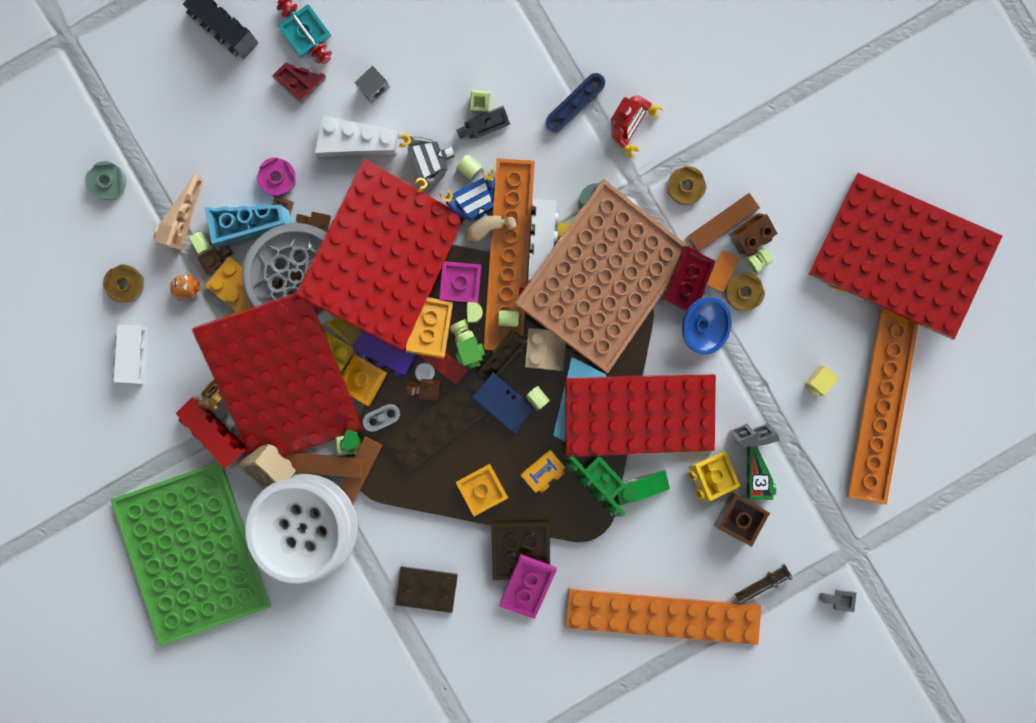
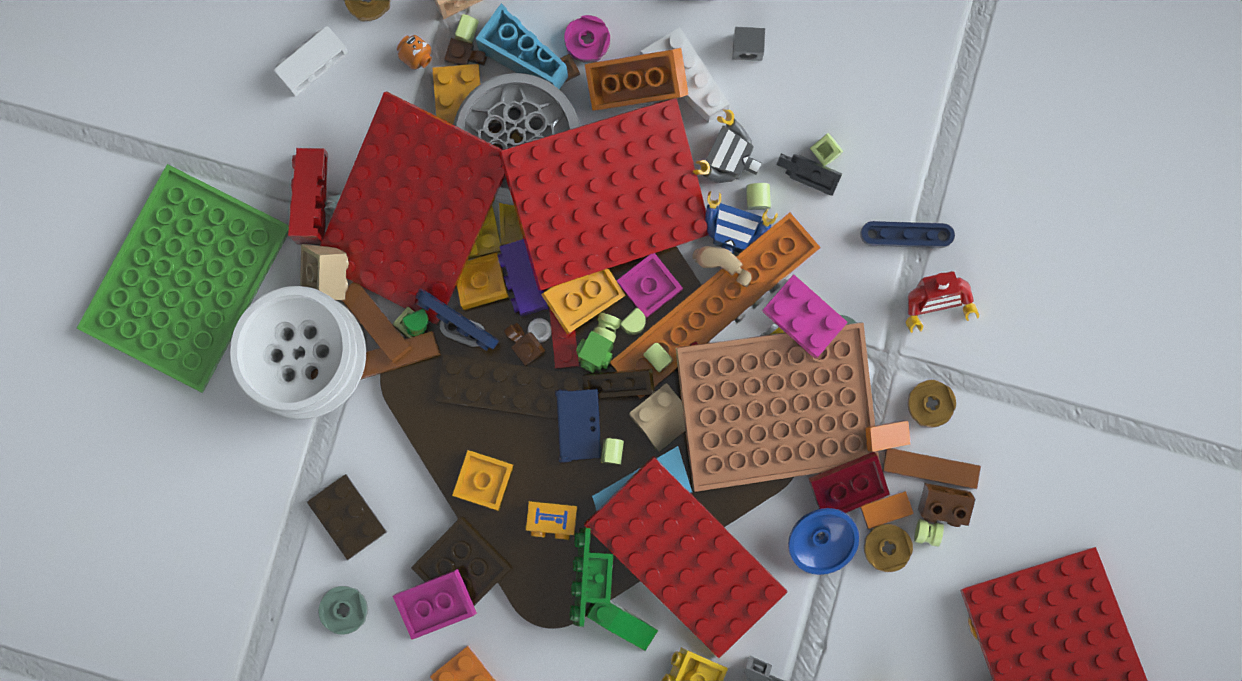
camera: 45 degrees right, 5 degrees down
(211, 397) = (340, 165): pearl gold plate -> none
(317, 220) = (582, 108): reddish brown plate -> none
(330, 171) = (636, 79): none -> orange brick
(363, 418) = (464, 325): none -> dark blue plate
(478, 631) = (336, 622): none -> sand green plate
(568, 209) = (804, 316): none -> dark pink plate
(681, 229) = (887, 436): none -> tile

